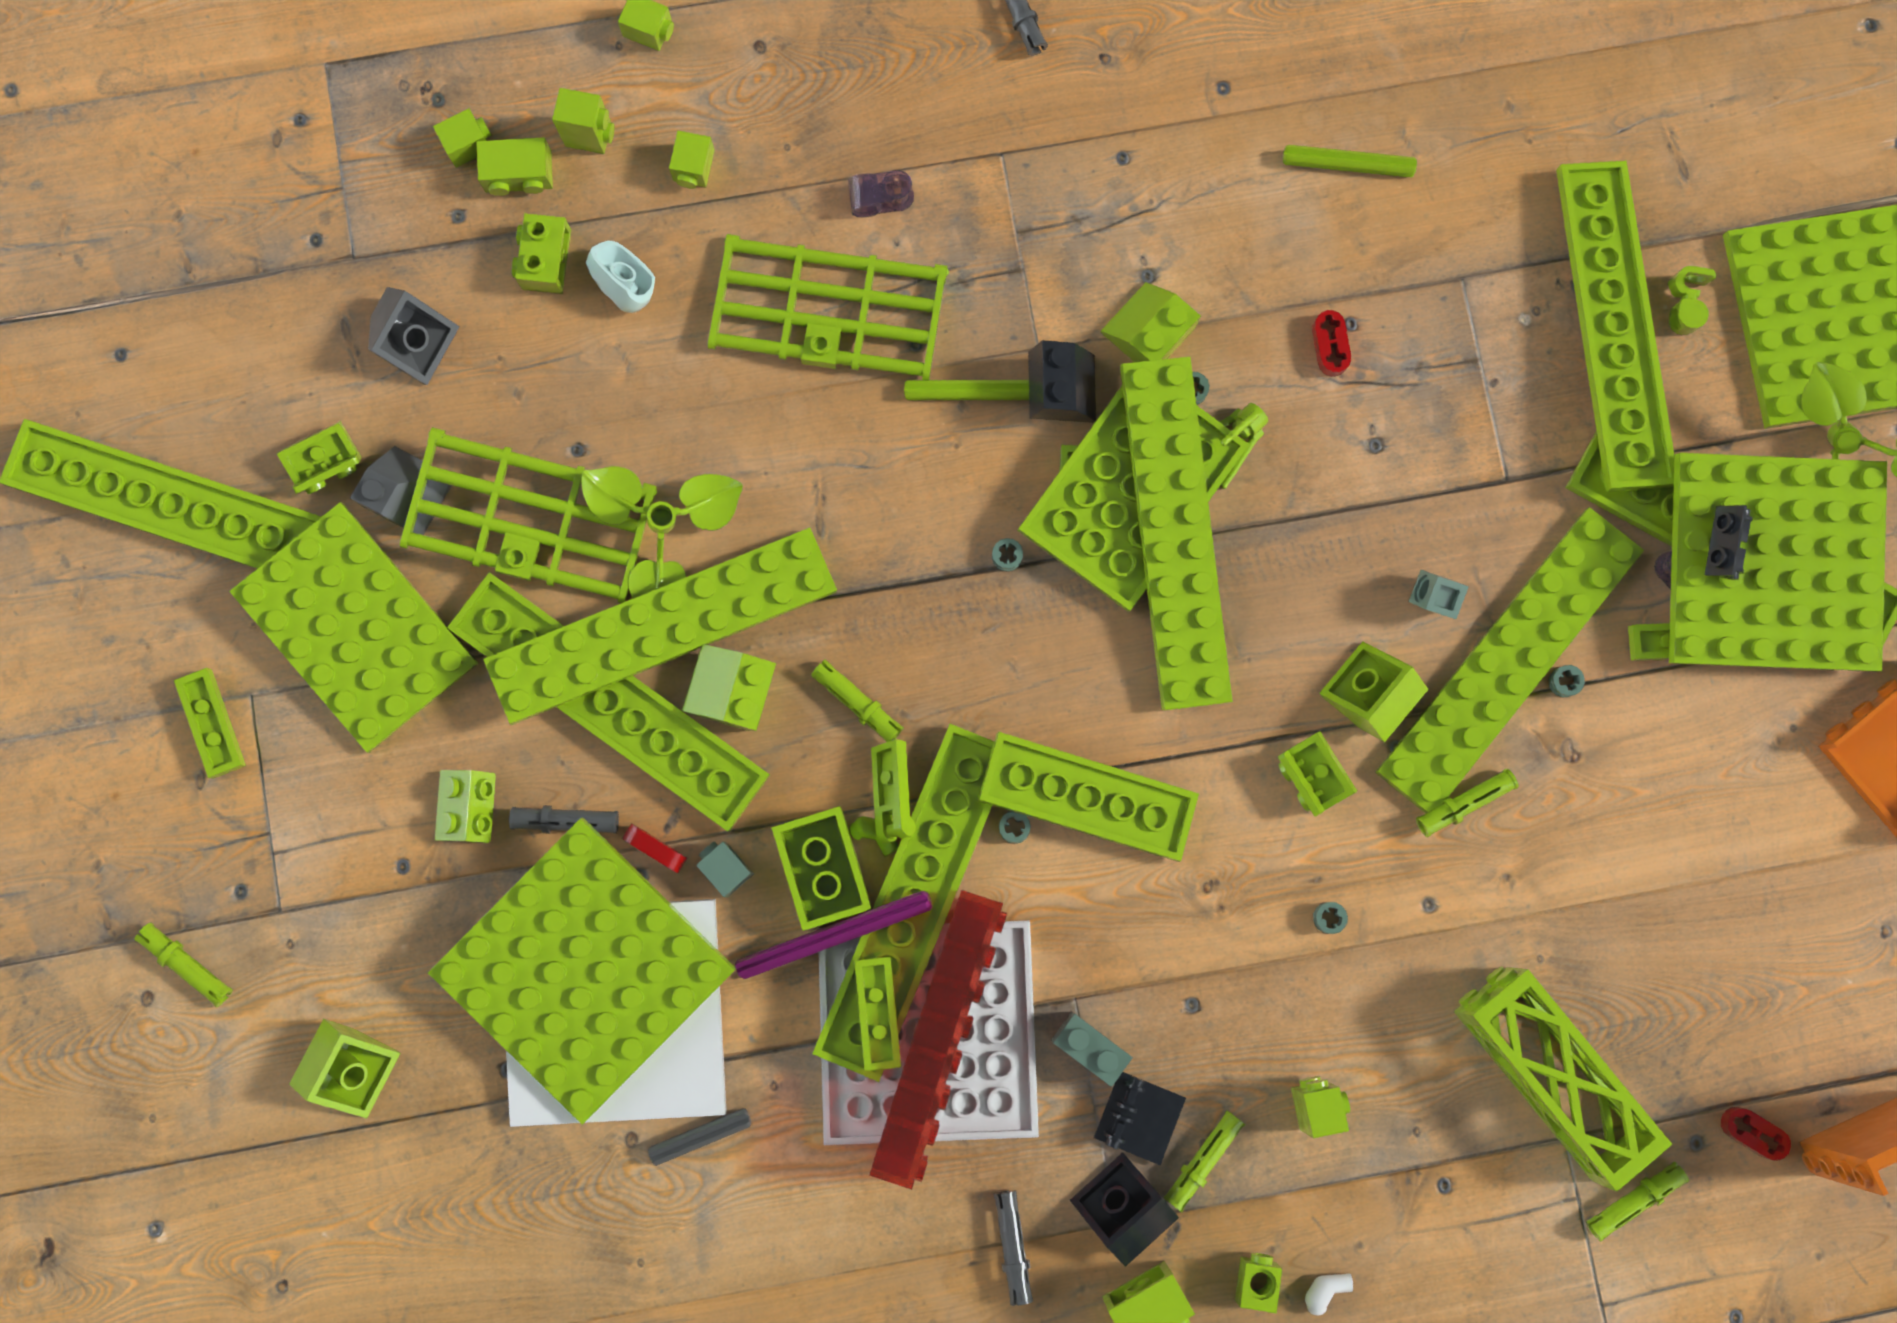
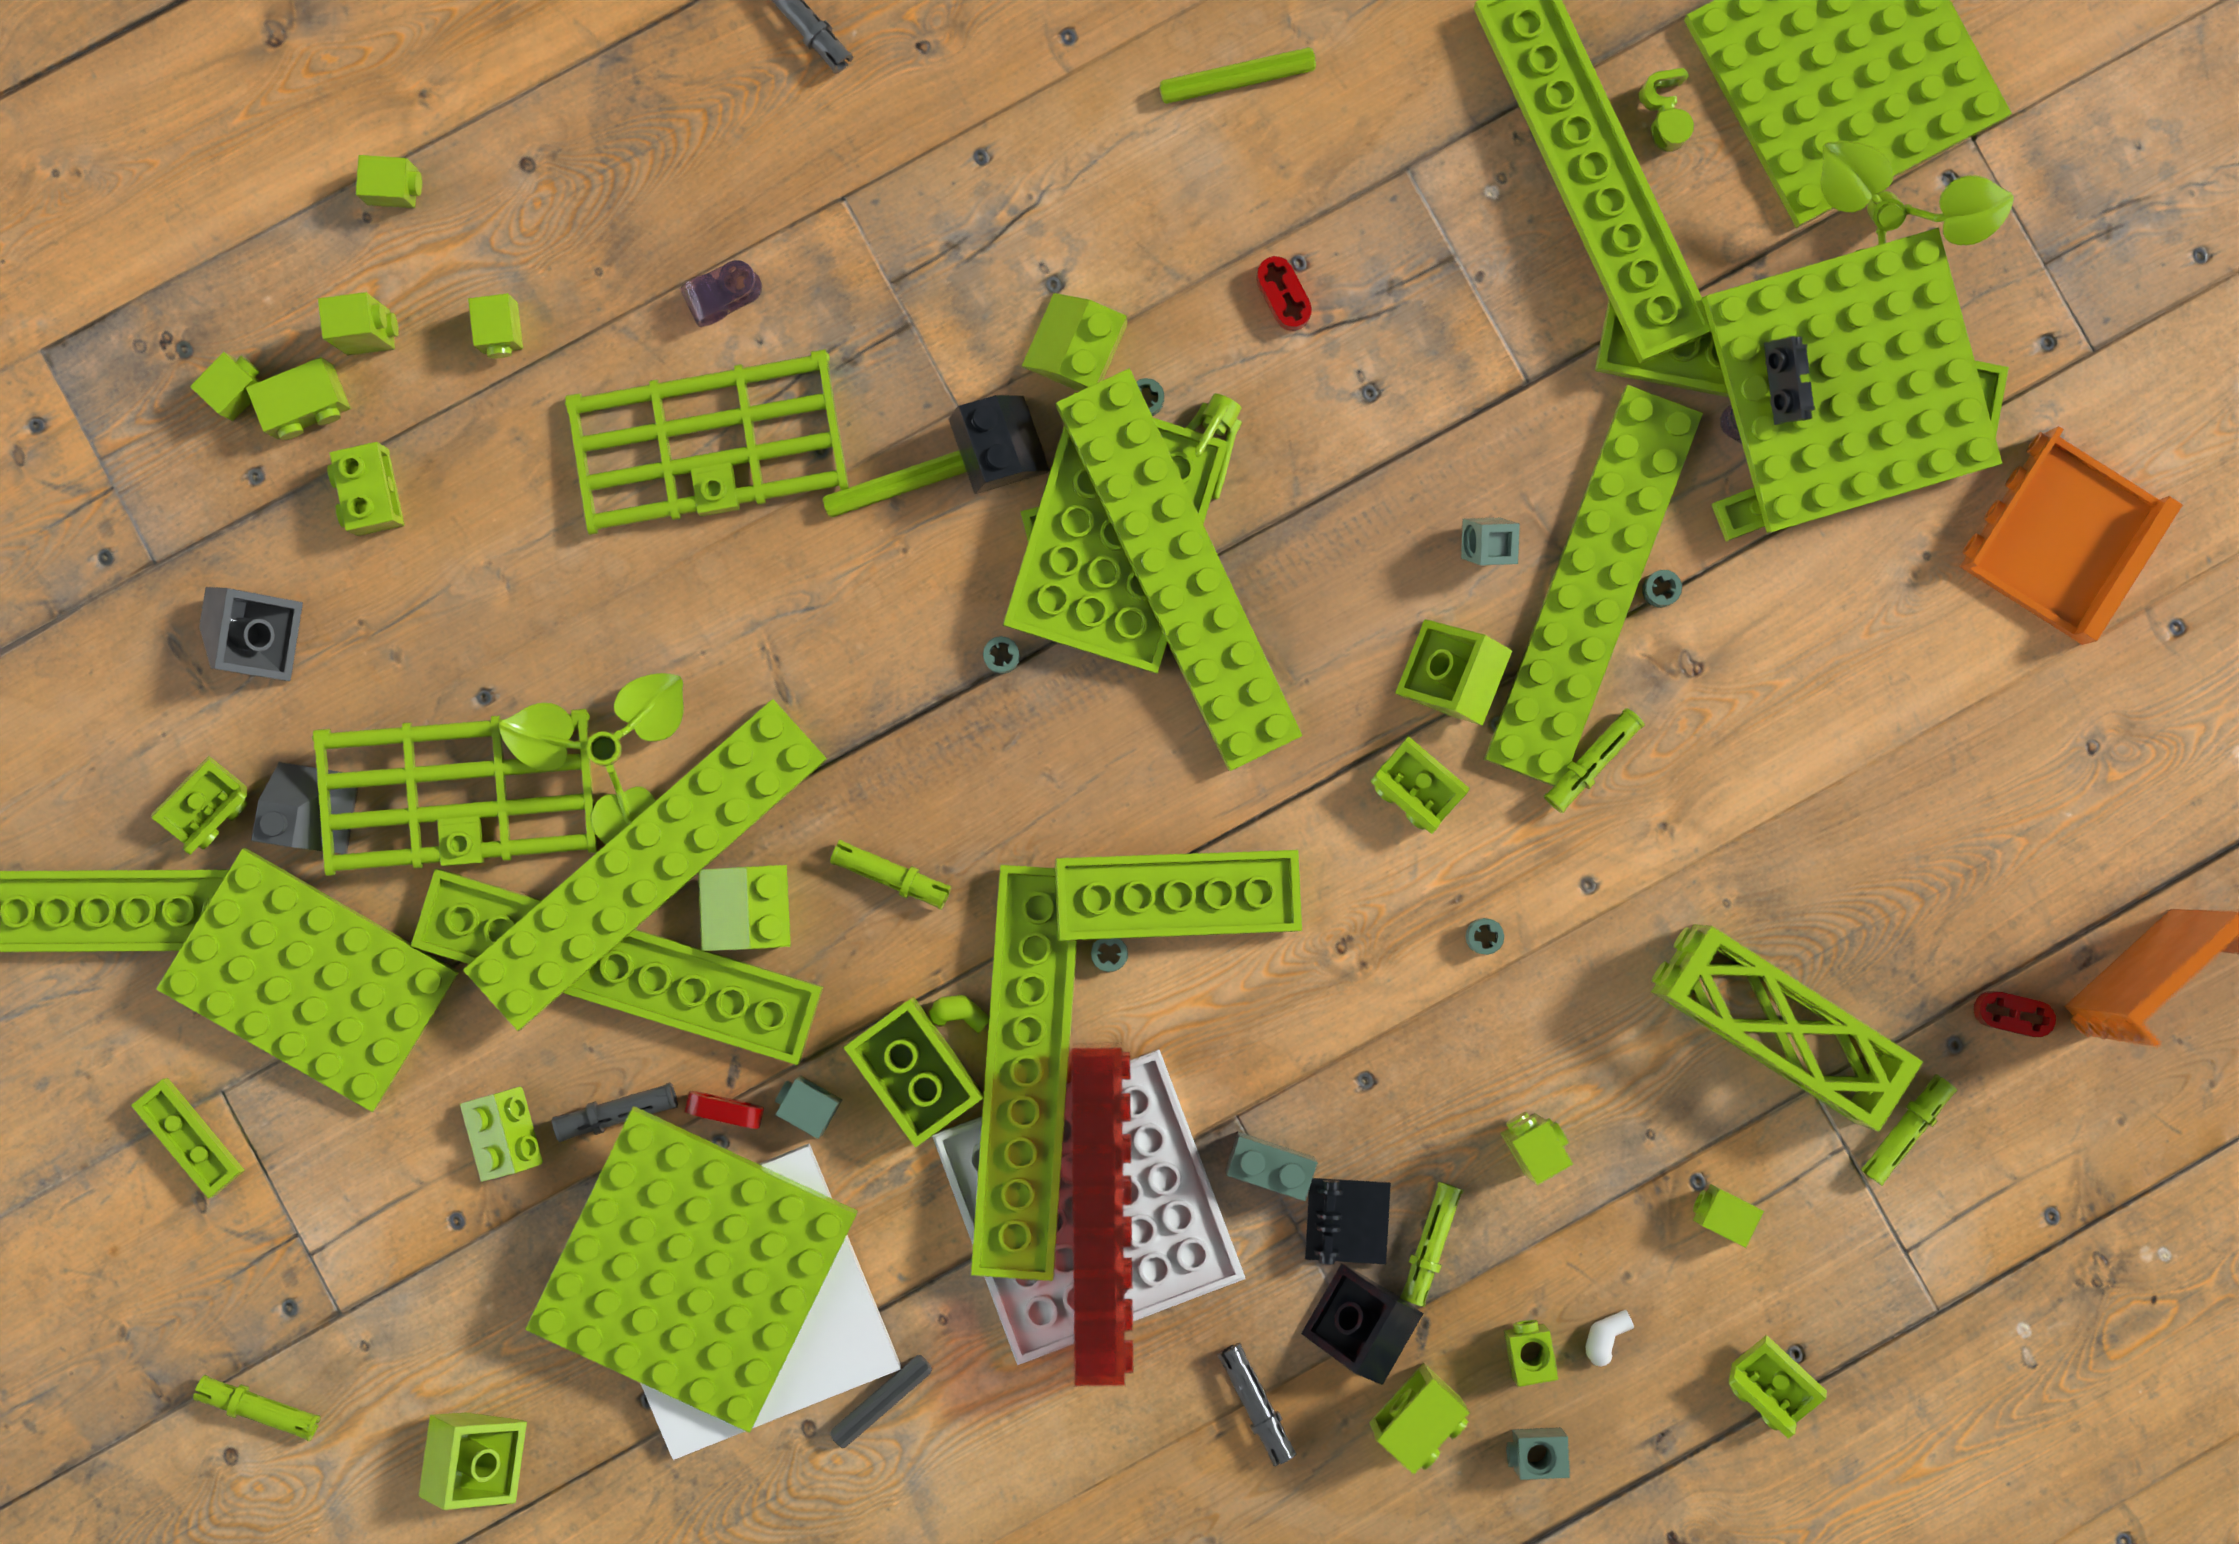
camera: 10 degrees left, 5 degrees up
(621, 275) = (463, 485): light aqua piece -> none
(834, 934) = (951, 1139): magenta axle -> none
(877, 1014) = (1027, 1209): lime plate -> none
(891, 791) = (961, 962): lime plate -> none
(1461, 1221) = (1726, 1215): none -> lime brick

